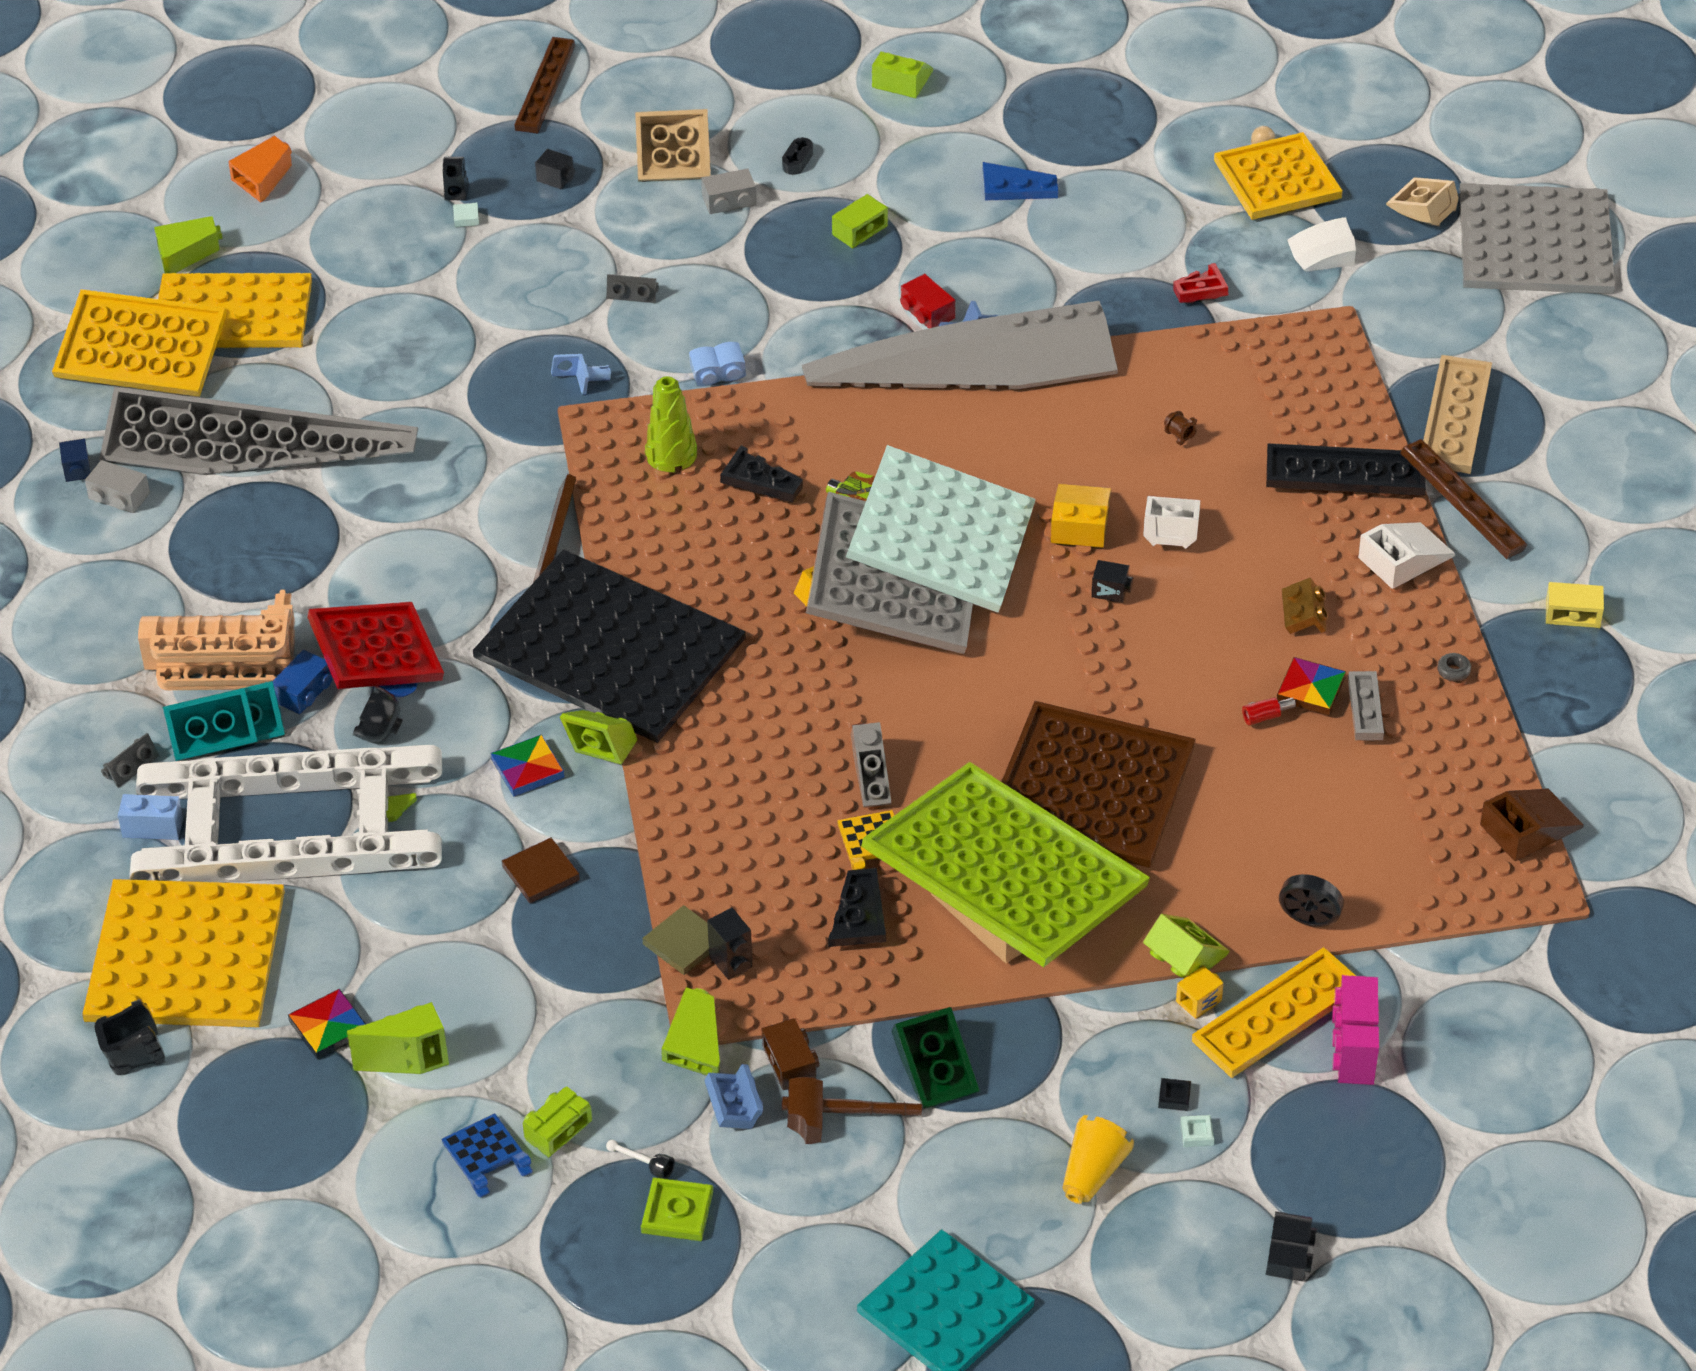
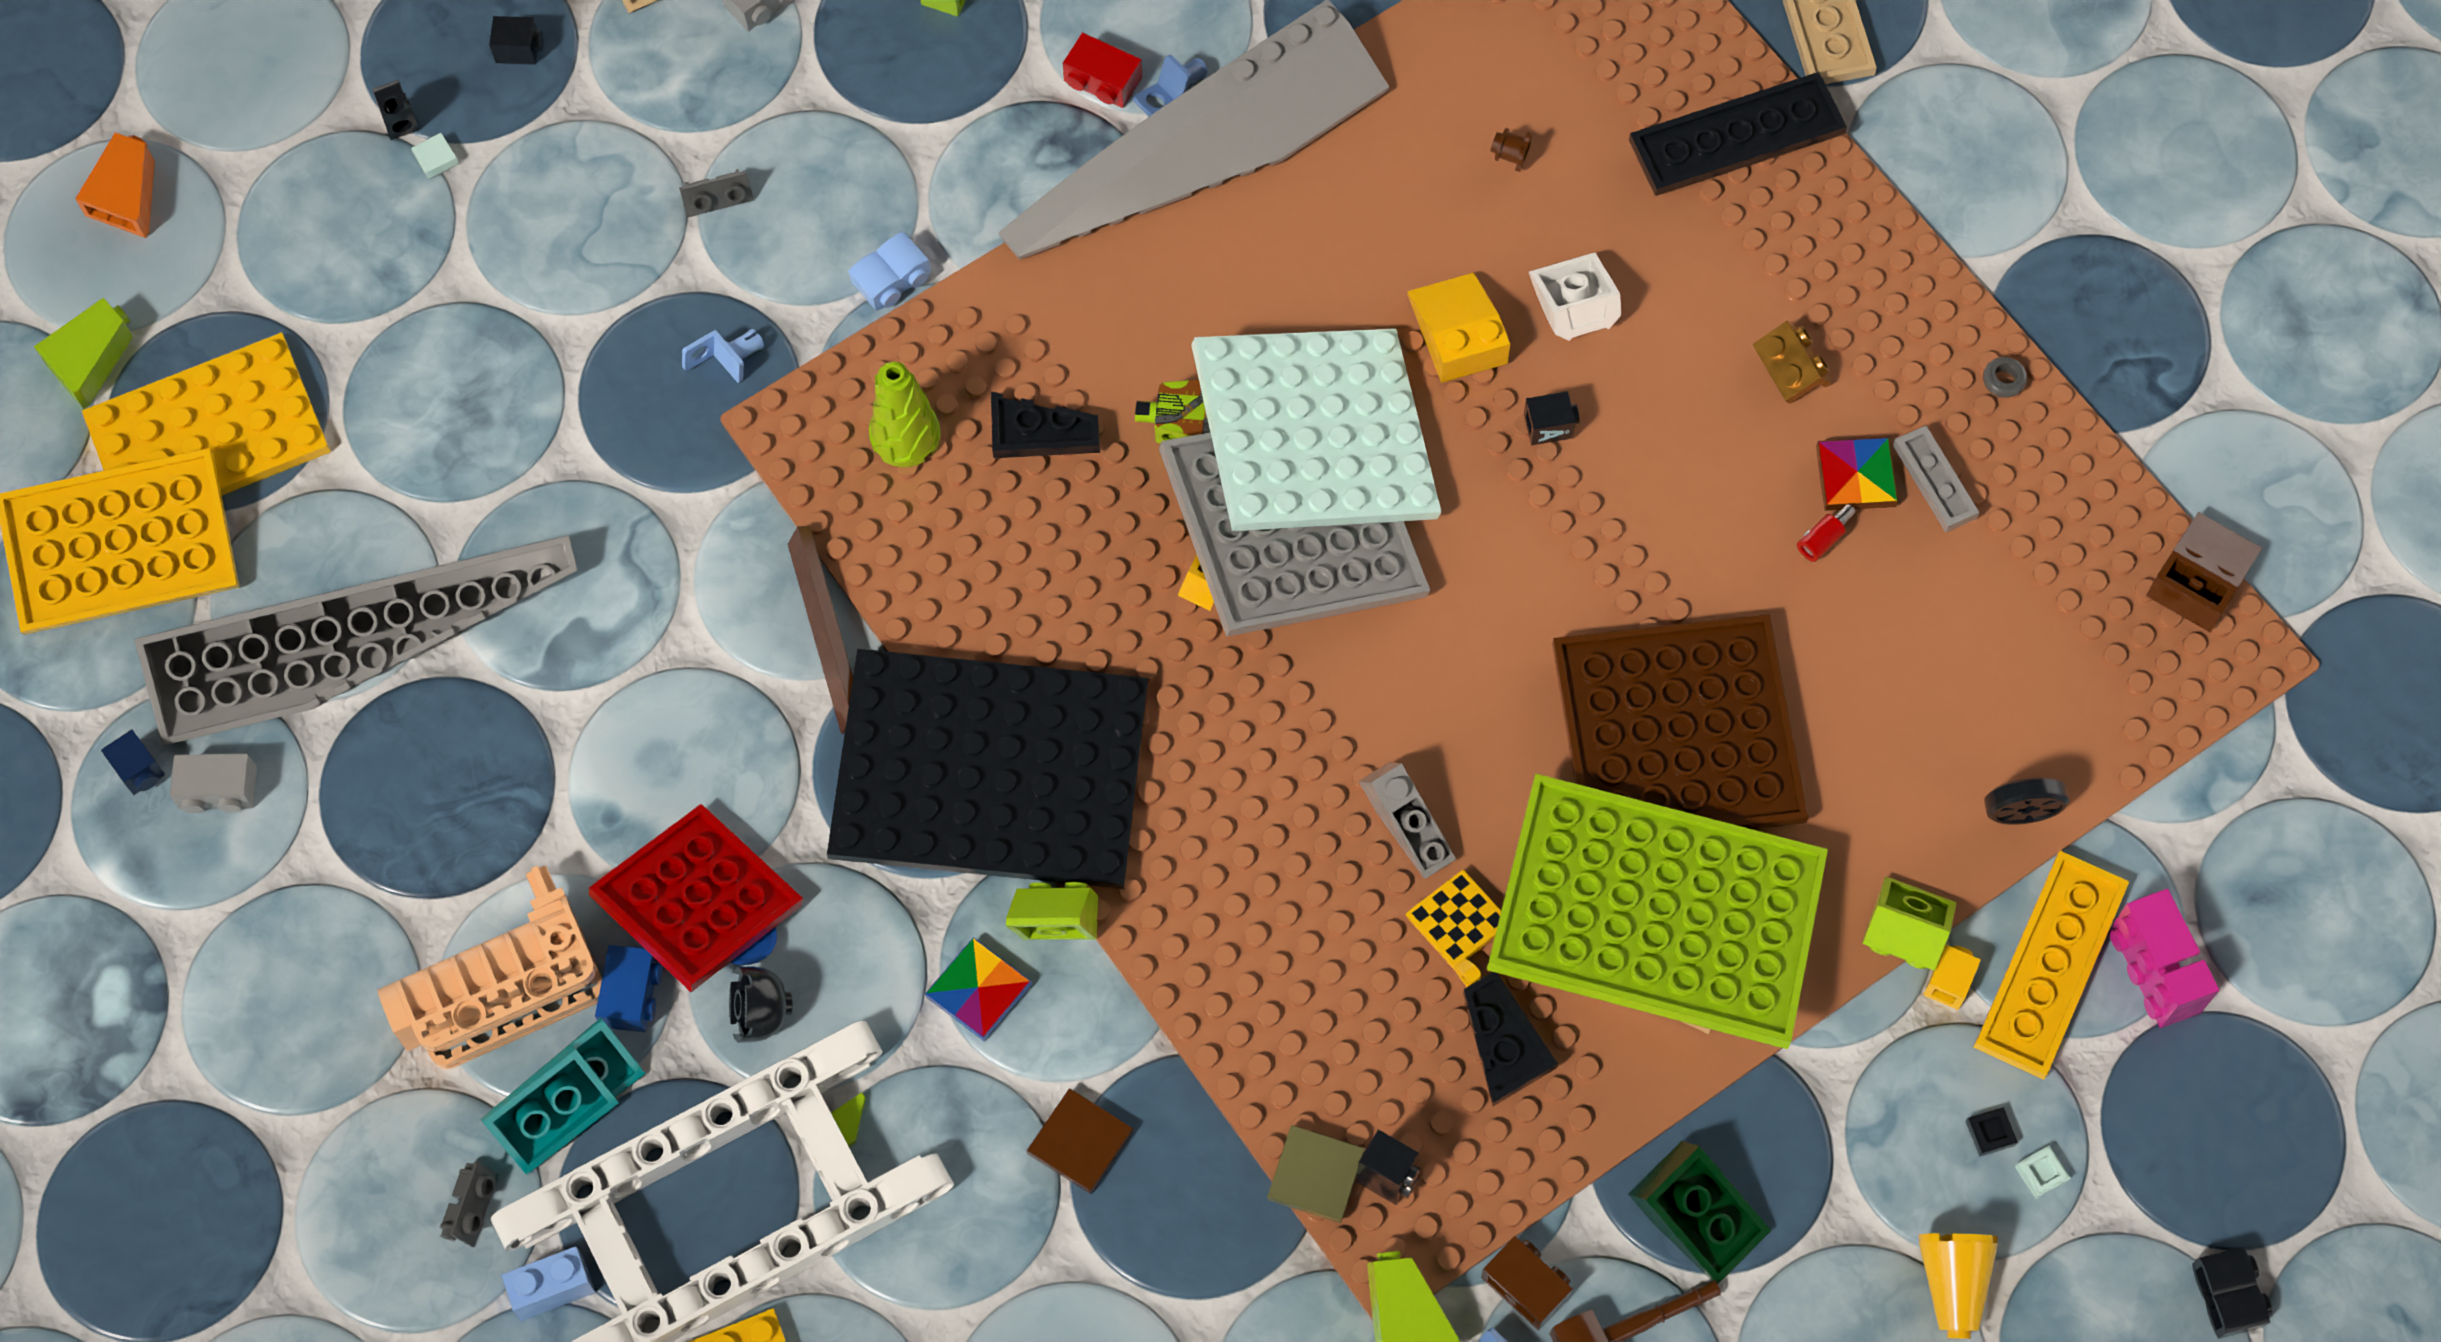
camera: 25 degrees left, 20 degrees up
(1402, 551) = (1868, 233): white slope -> none
(1464, 499) = (1894, 122): reddish brown tile -> none
(1574, 604) = (2091, 225): light yellow brick -> none

